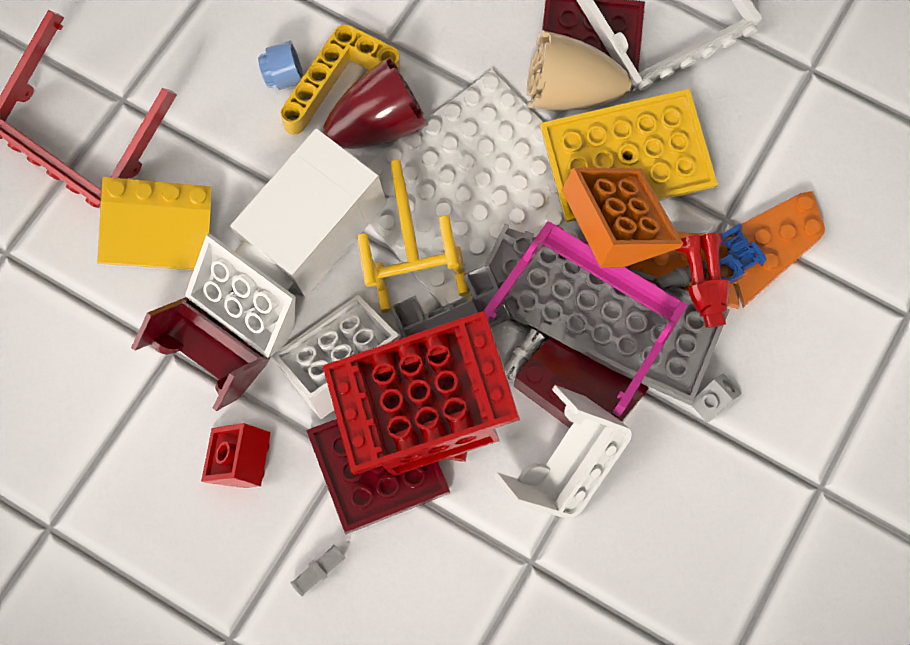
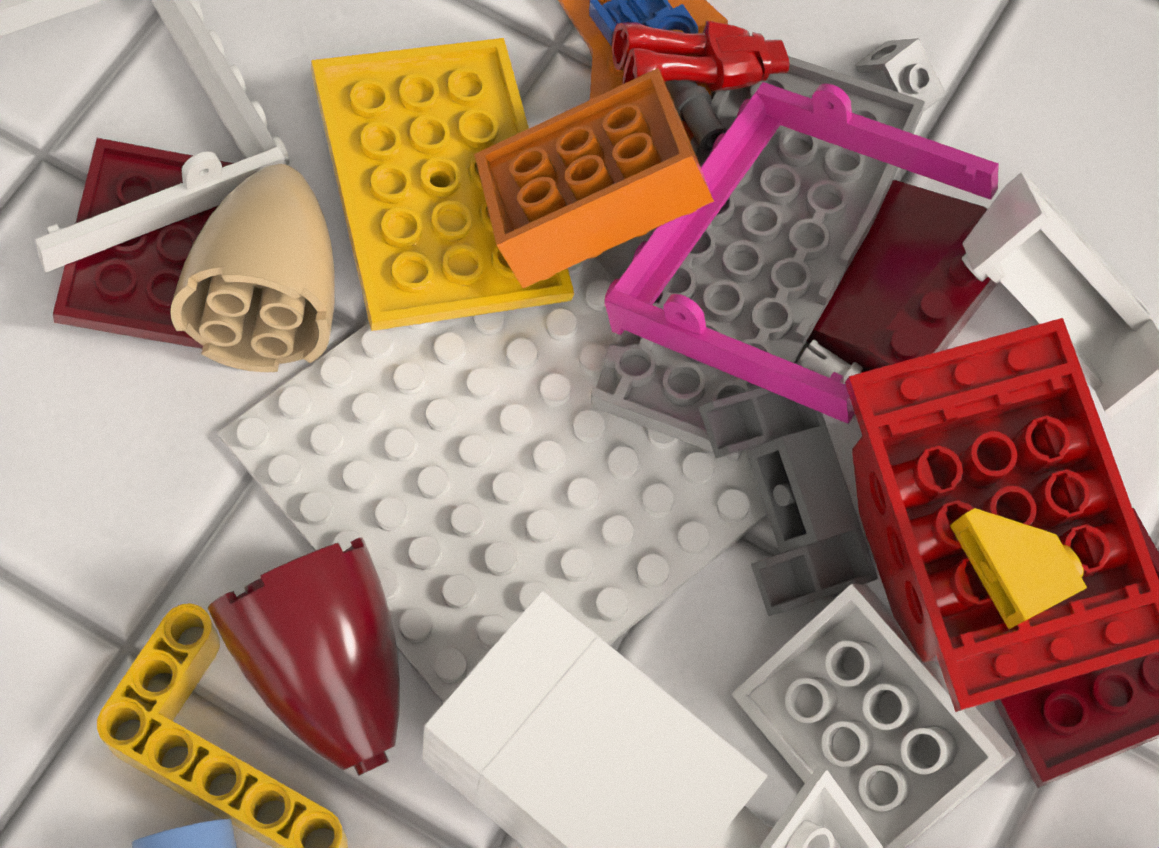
camera: 90 degrees left, 5 degrees down
(376, 273) = (692, 488): yellow piece -> none
(384, 386) = (1018, 564): none -> yellow slope

